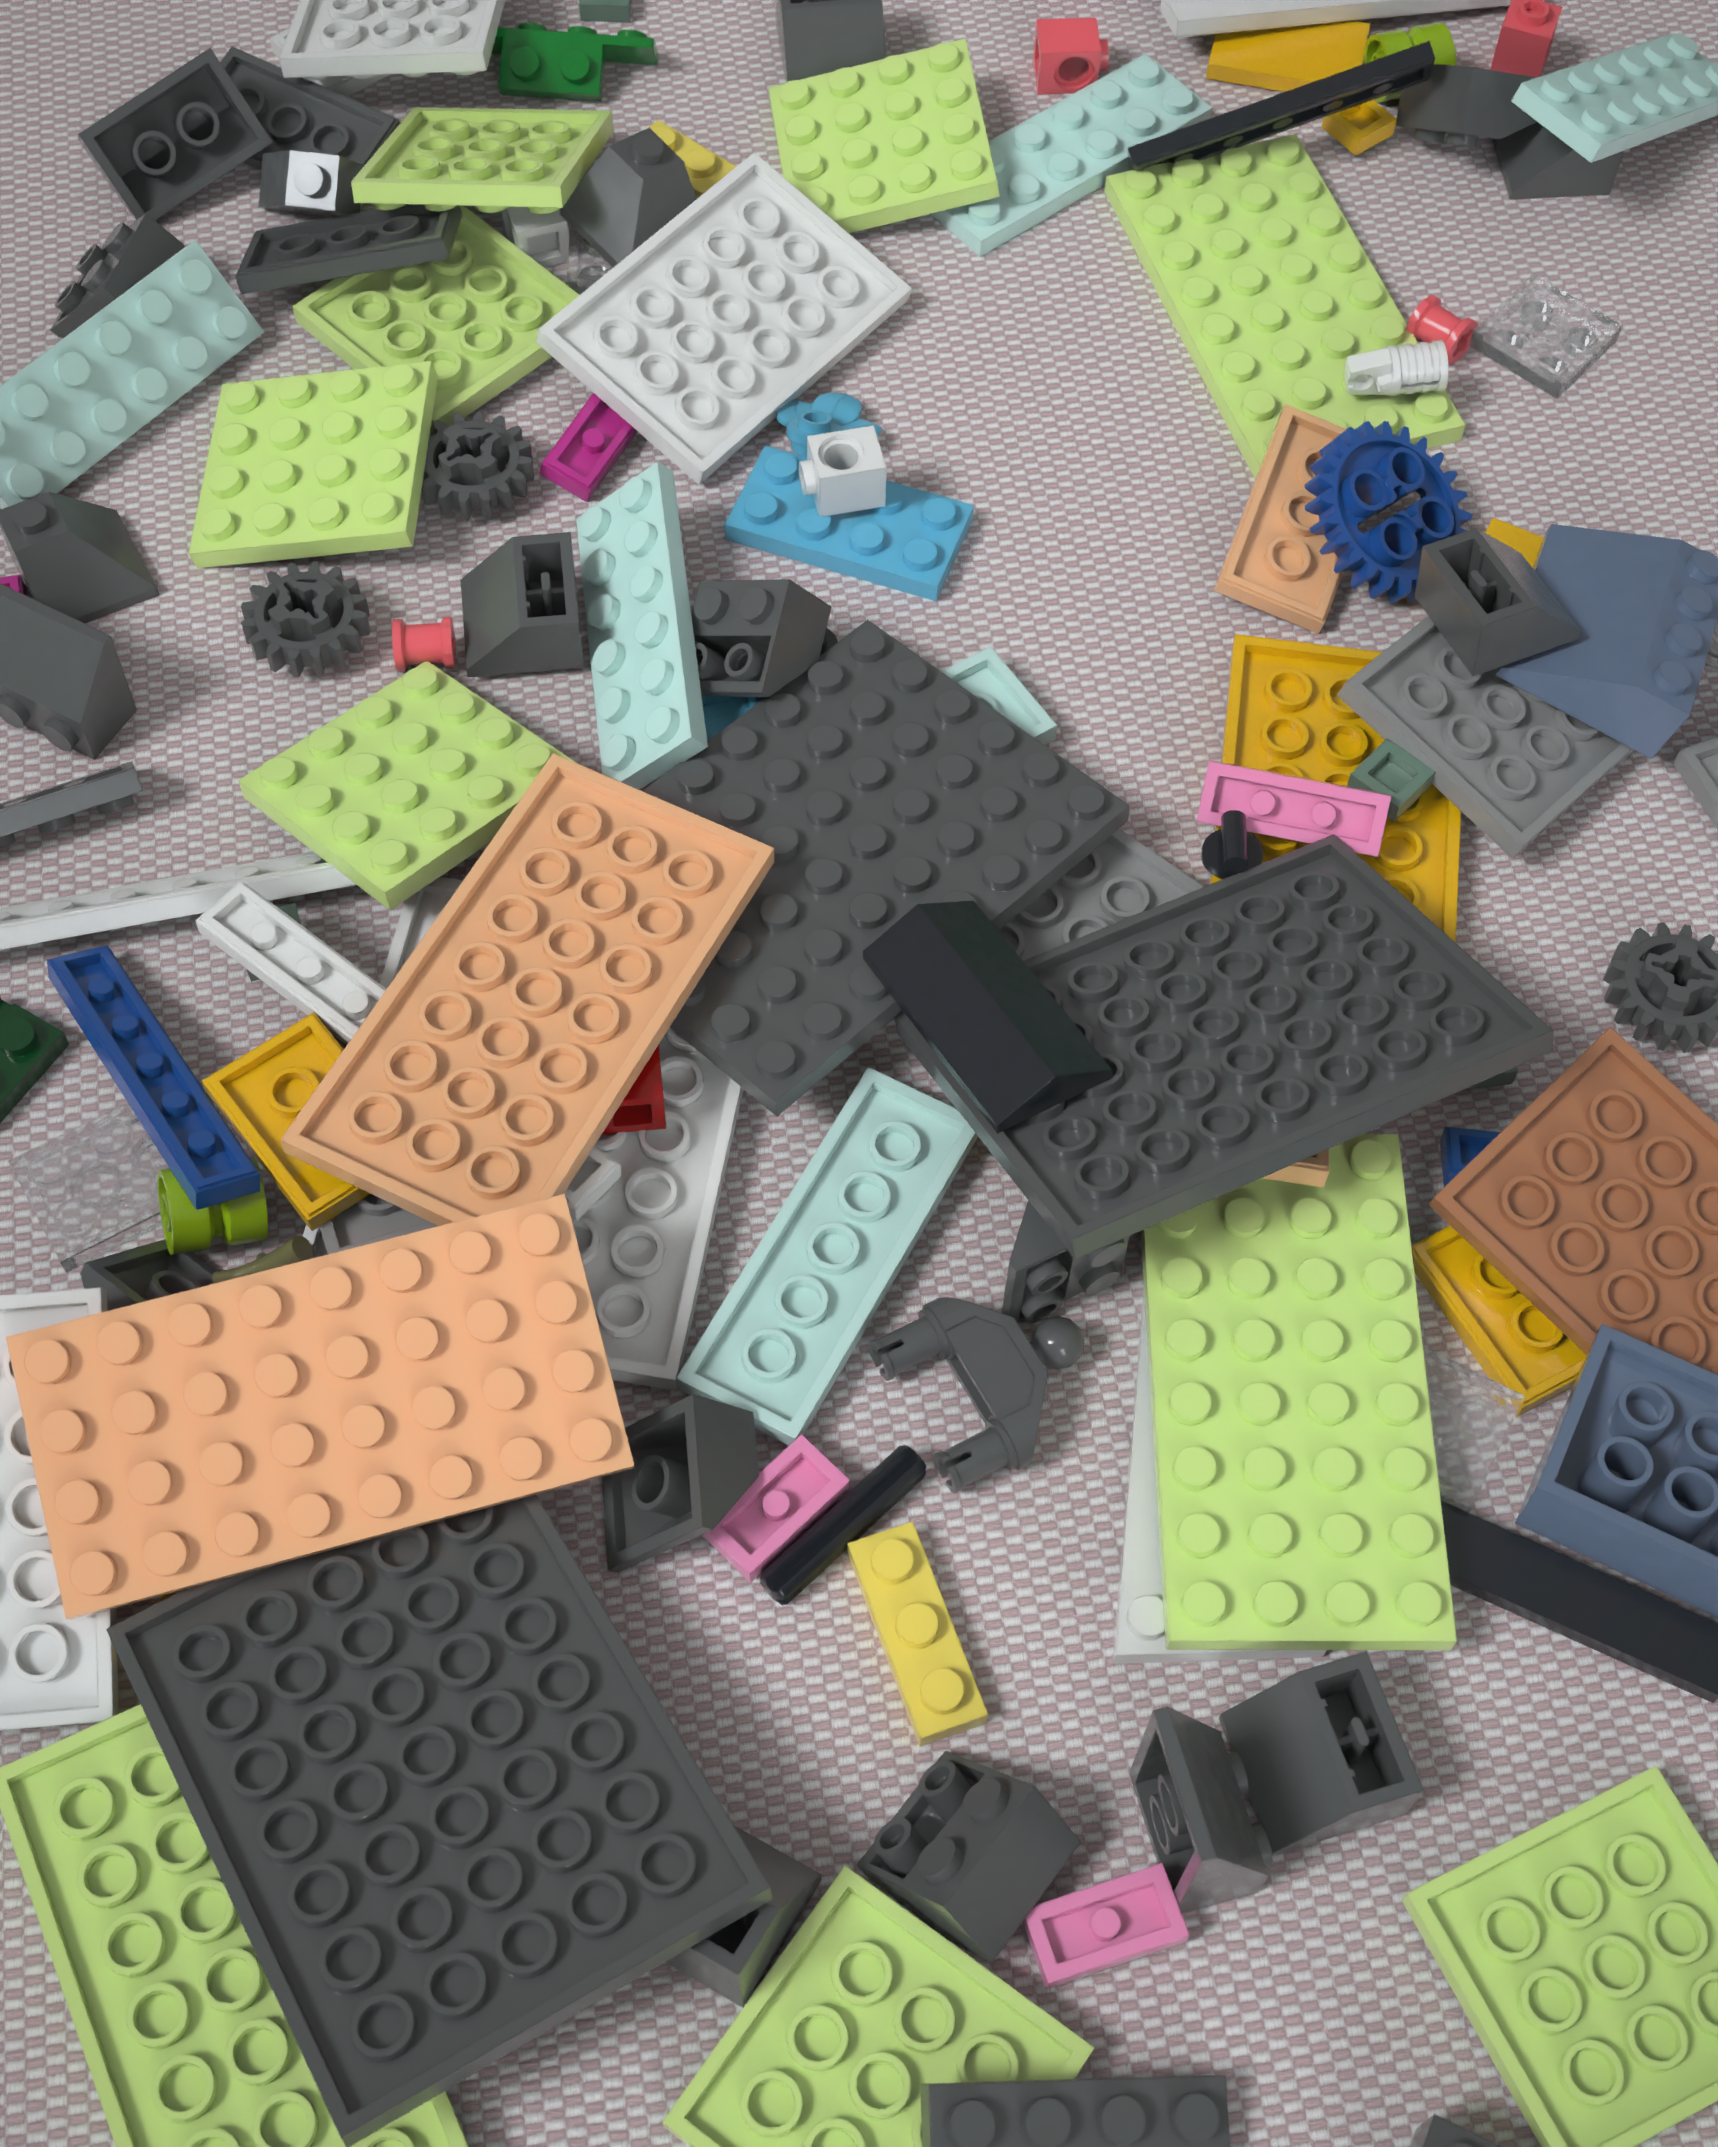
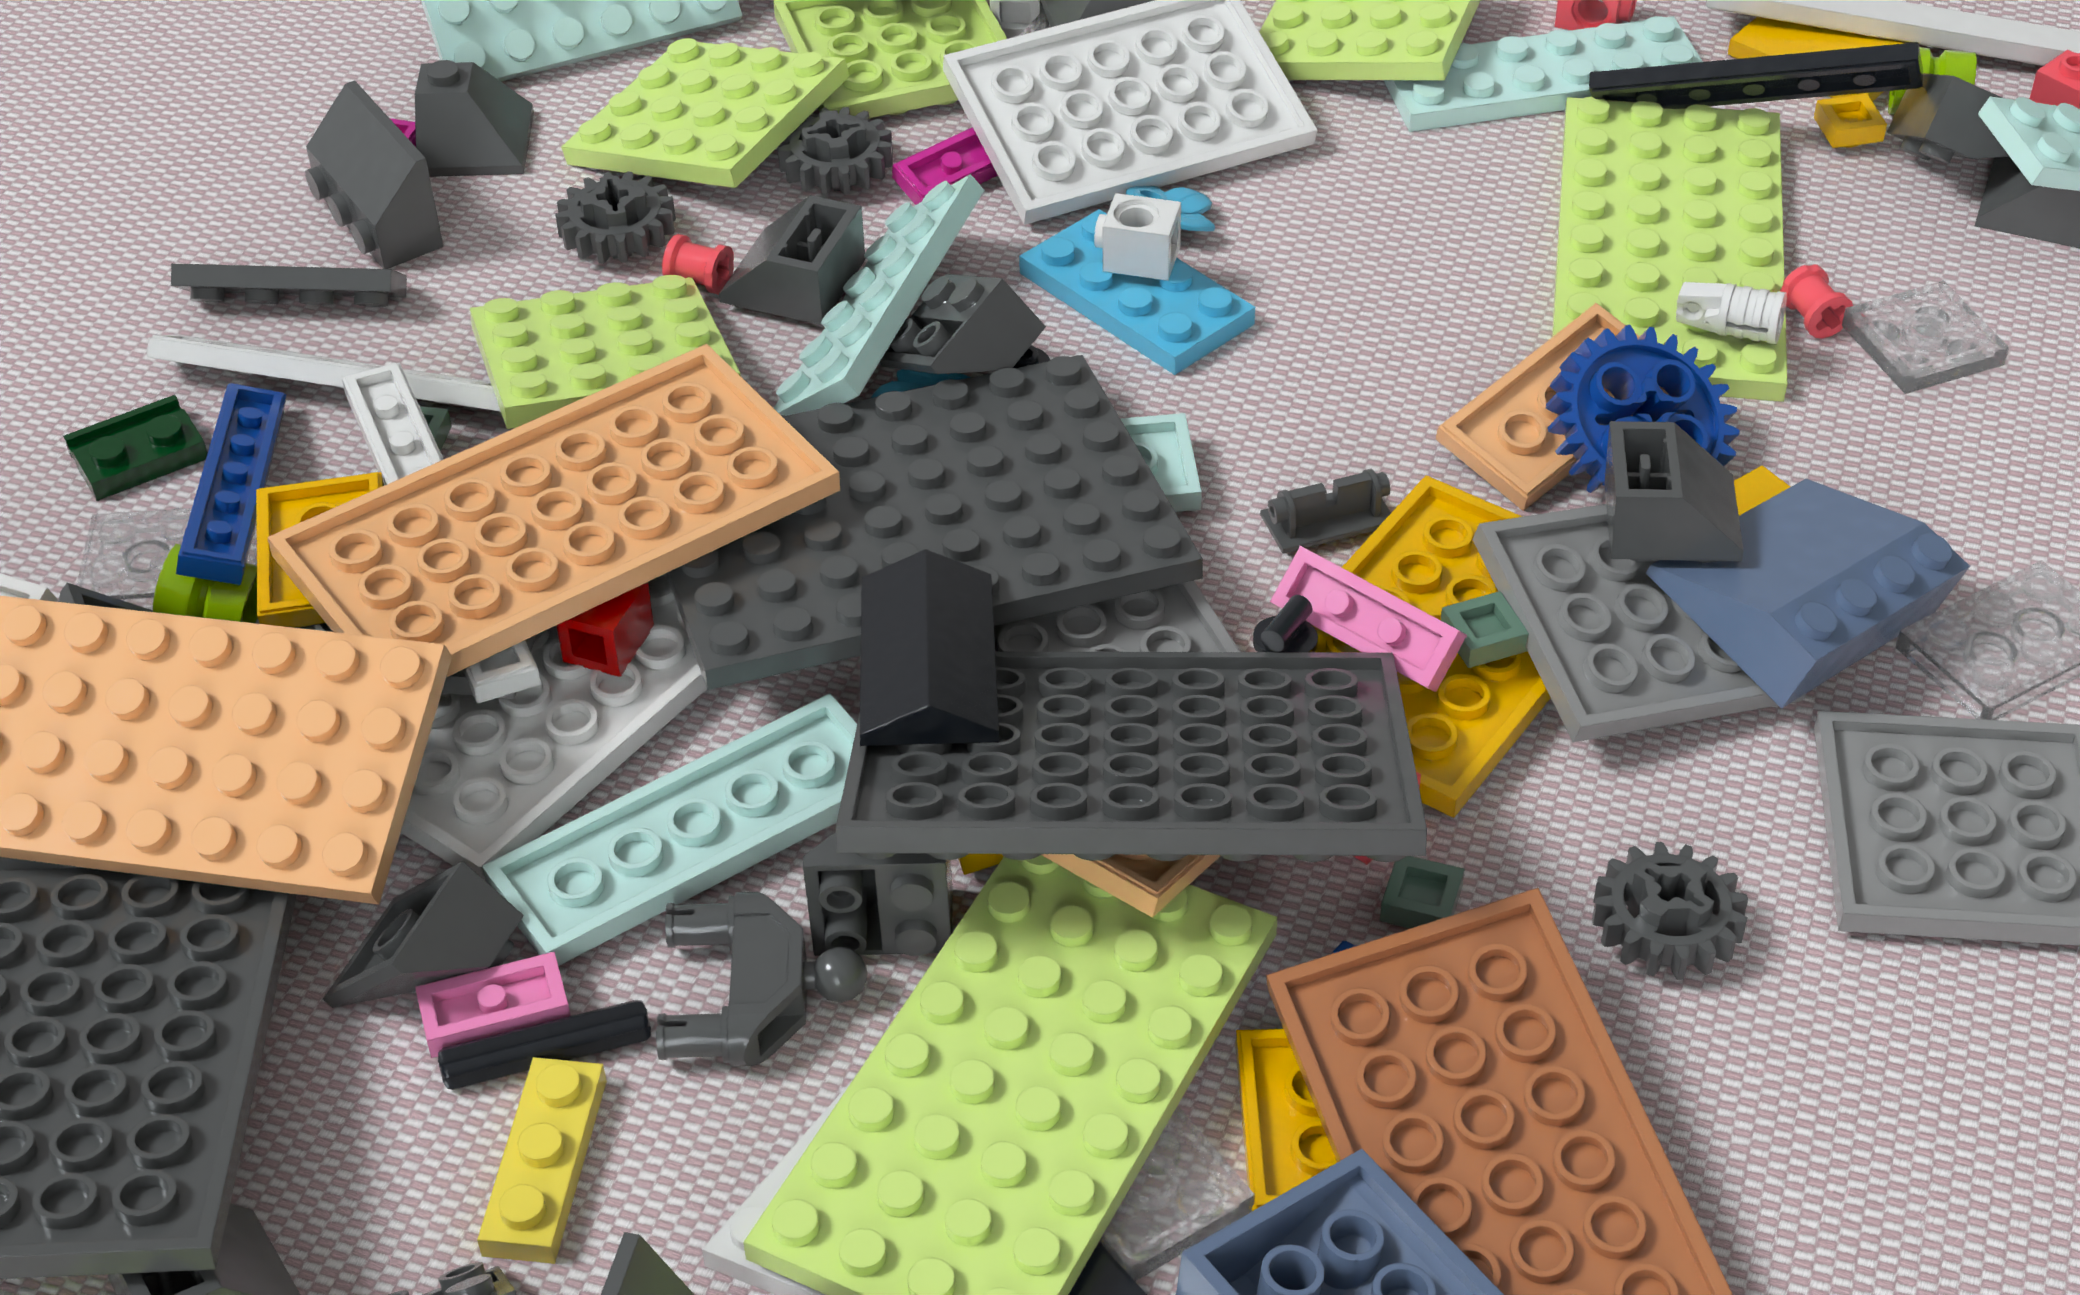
camera: 30 degrees right, 15 degrees down
(1171, 702) = (1314, 517): none -> dark grey hinge

